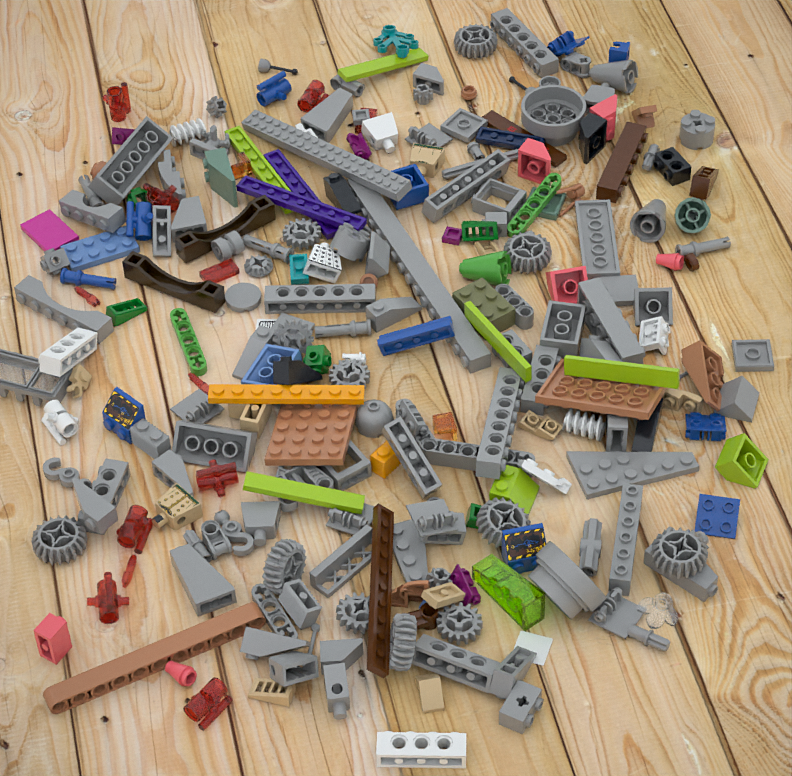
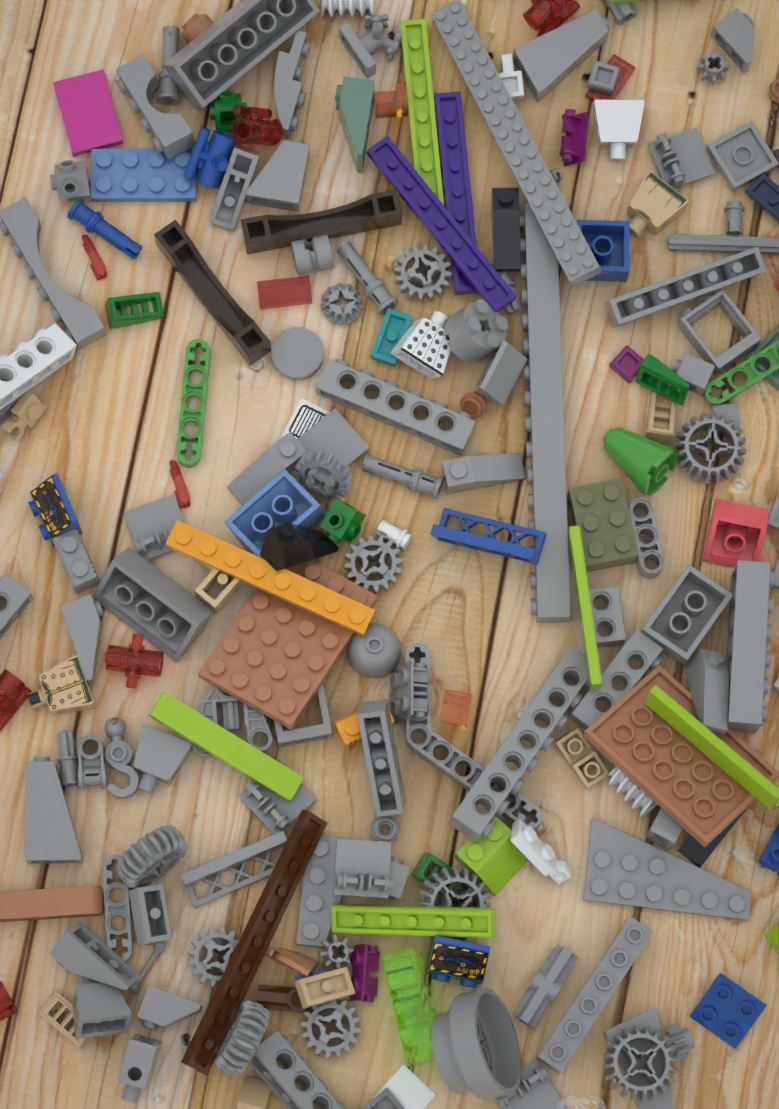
camera: 20 degrees right, 30 degrees up
(481, 535) = (413, 920): none -> lime tile

